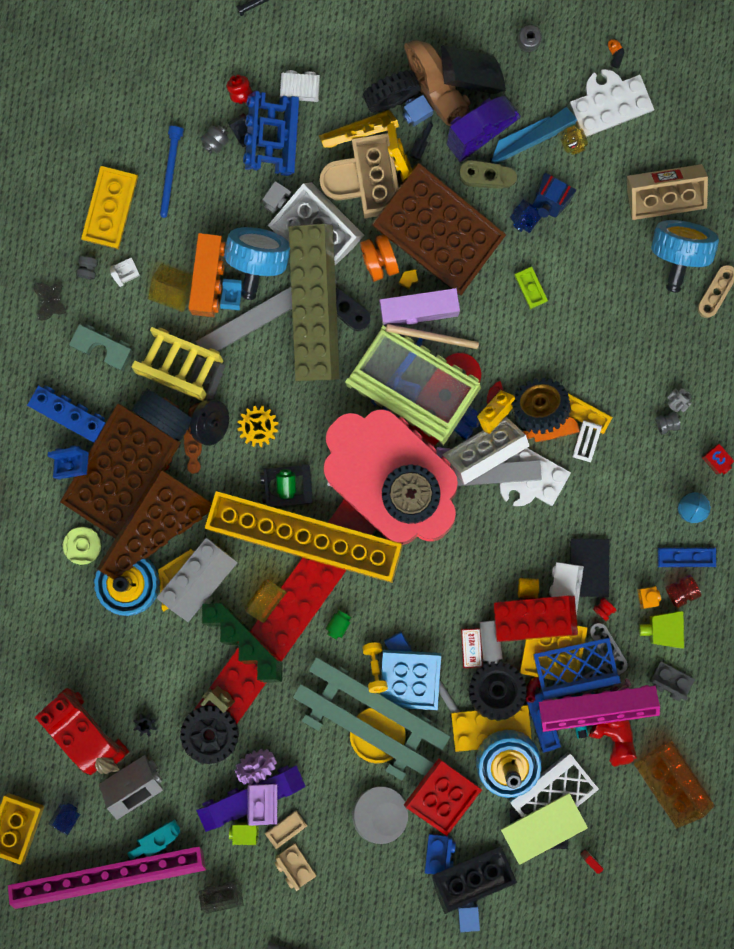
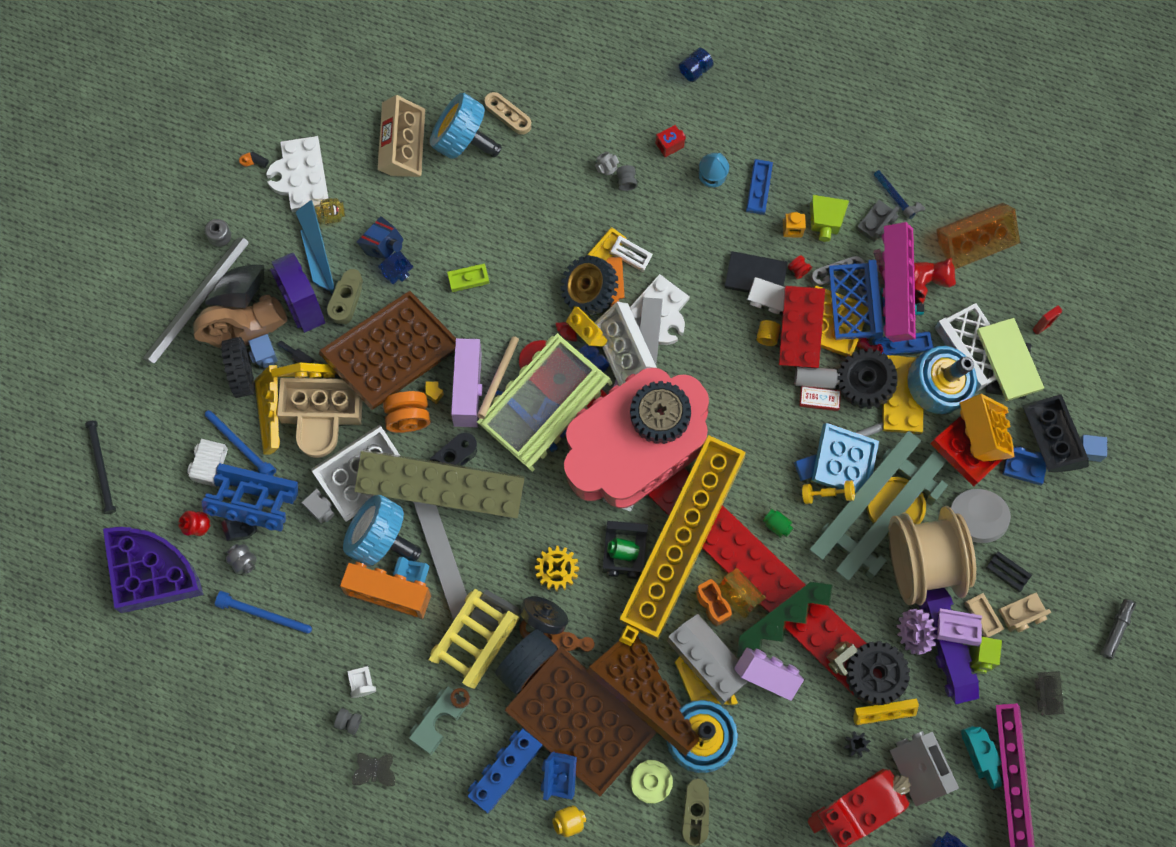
camera: 85 degrees left, 15 degrees down
(34, 478) = (569, 821): none -> yellow head
(75, 588) = (697, 794): none -> olive piece
(109, 207) = (287, 685): yellow plate -> none
(117, 357) = (454, 700): none -> reddish brown bush
(170, 287) = (390, 634): clear yellow slope -> none
(181, 756) = (886, 712): none -> yellow tile
(189, 58) = (147, 570): none -> dark purple brick
(190, 635) = (769, 673): none -> lavender brick
(208, 502) = (629, 635): none -> yellow piece
(254, 571) = (710, 598): none -> orange brick
(303, 140) = (263, 467): none -> blue piece
(323, 771) = (931, 555): none -> tan wheel
(325, 863) = (1023, 581): none -> black tile
(457, 35) = (195, 300): none -> light grey tile
(464, 813) = (987, 428): none -> light orange wedge
(684, 591) = (792, 192): clear red wheel -> none
(688, 711) = (909, 211): none -> clear blue piece

